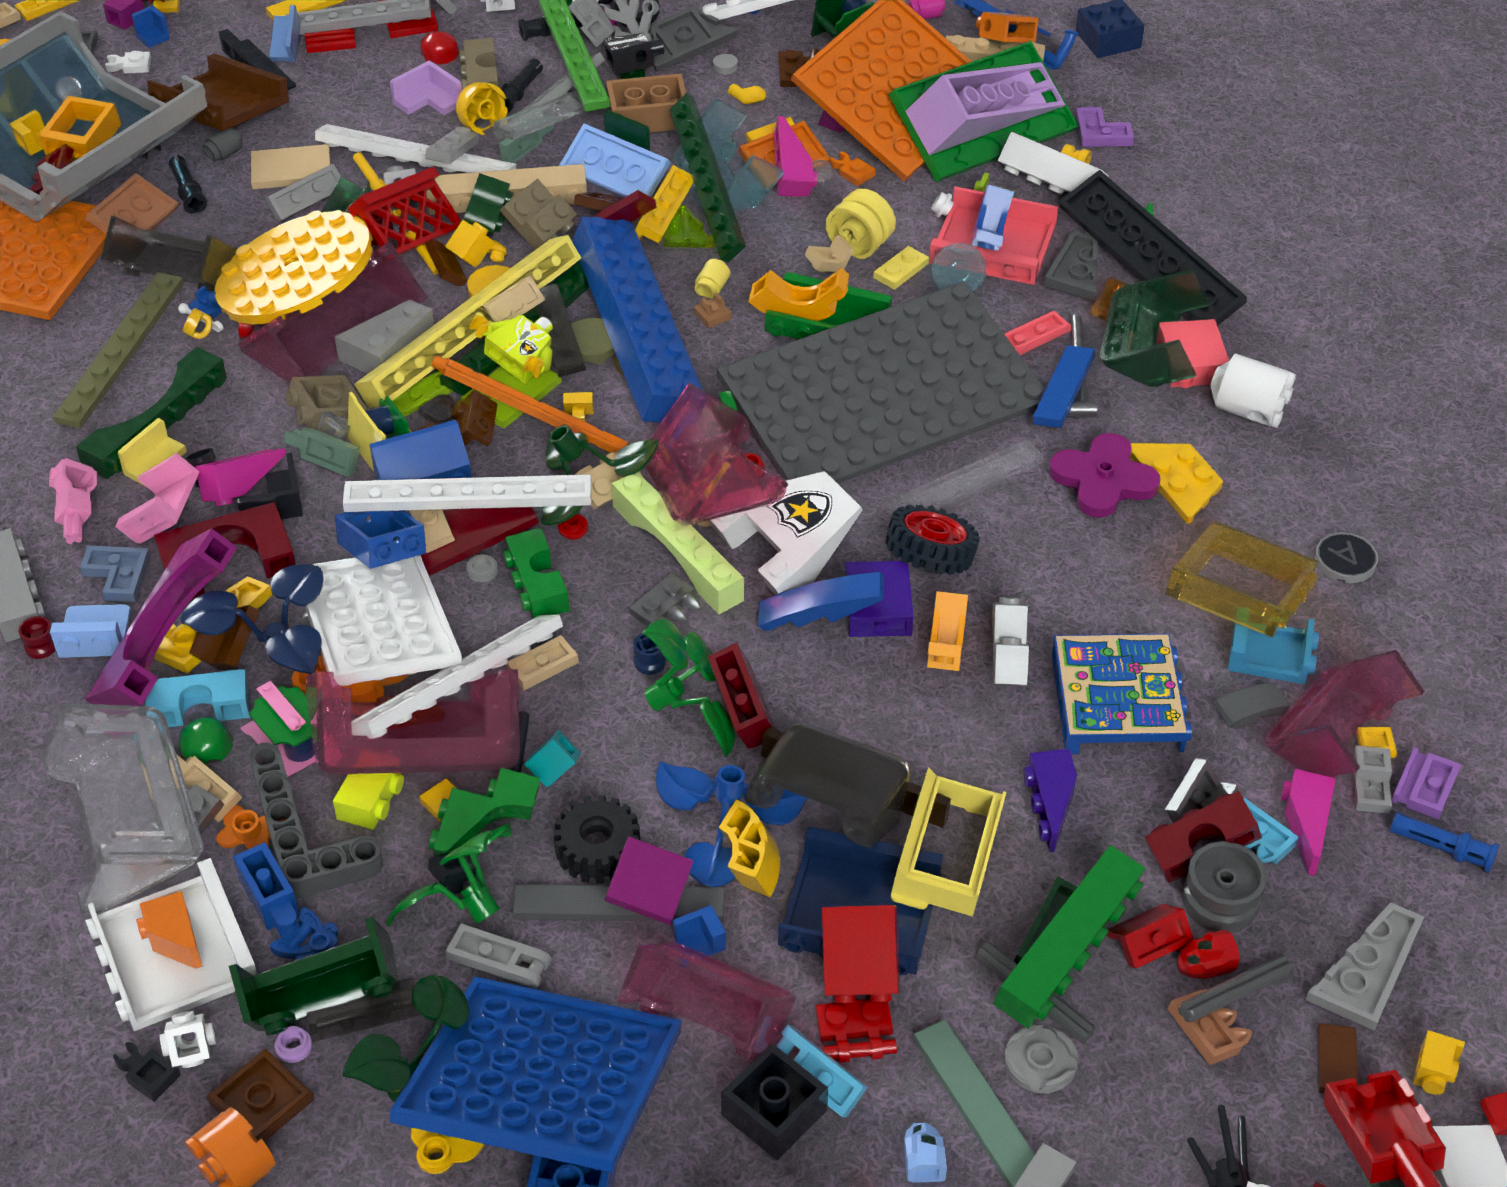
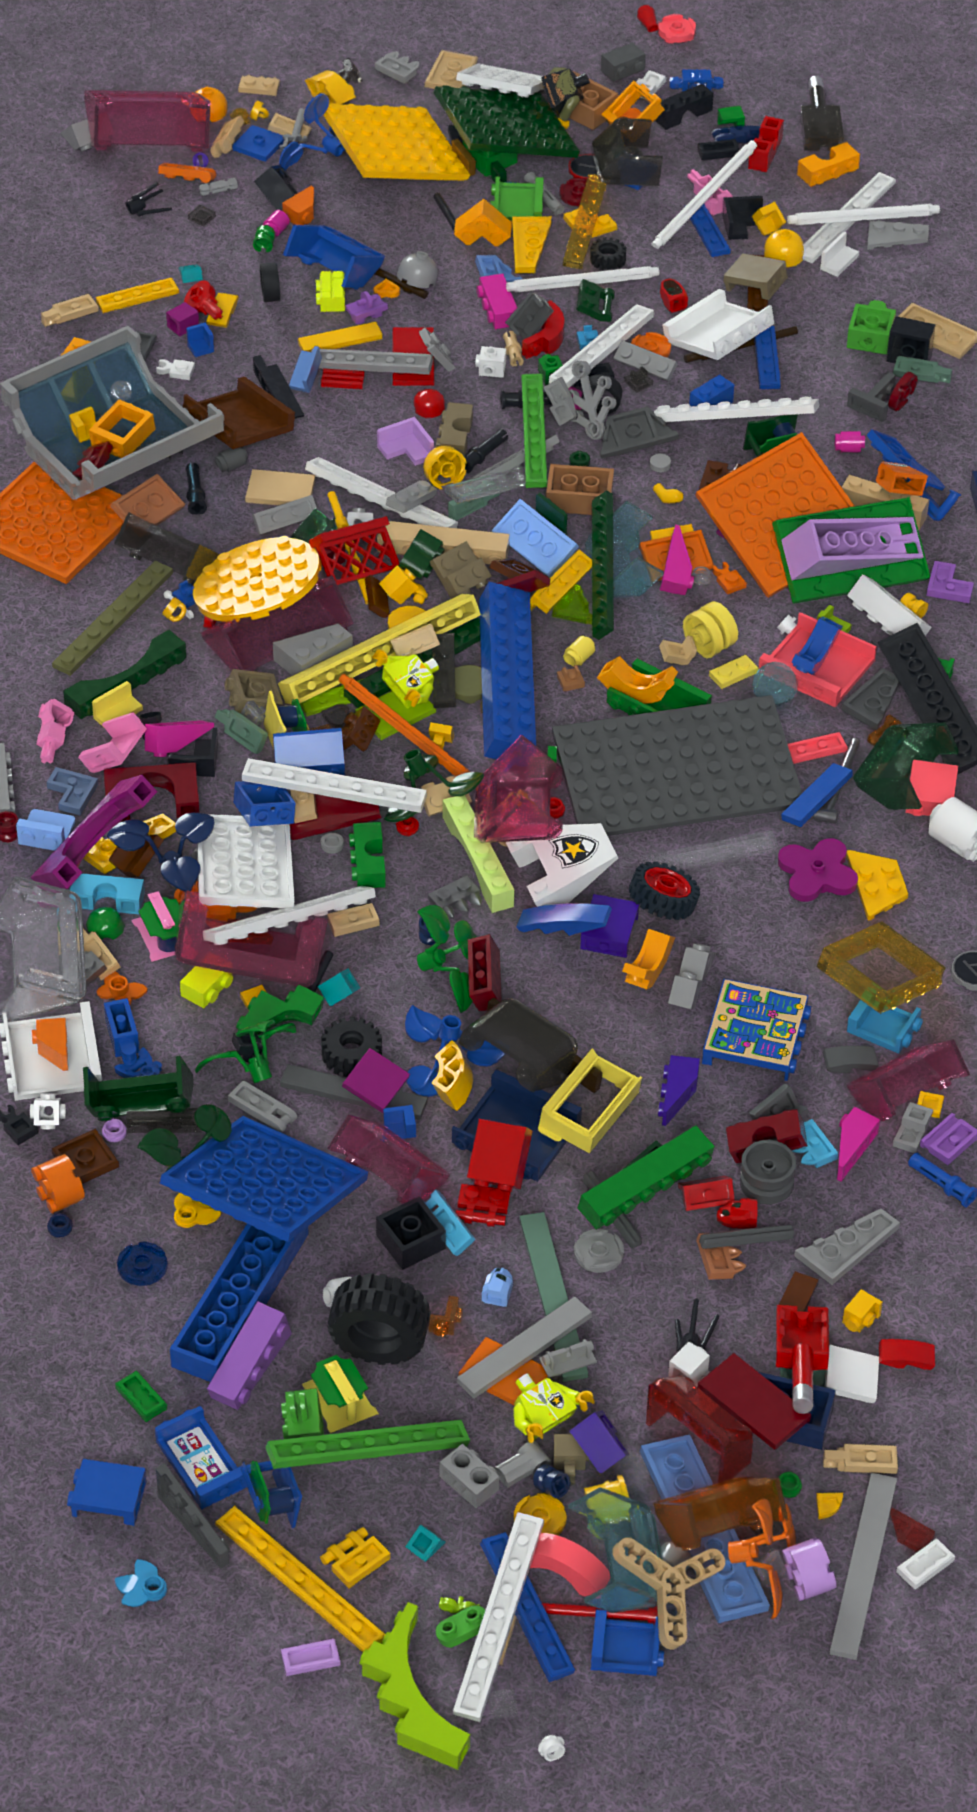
camera: 15 degrees right, 0 degrees up
(289, 832) = (144, 1001): dark grey beam -> none
(631, 52) = (583, 439): black torso -> none

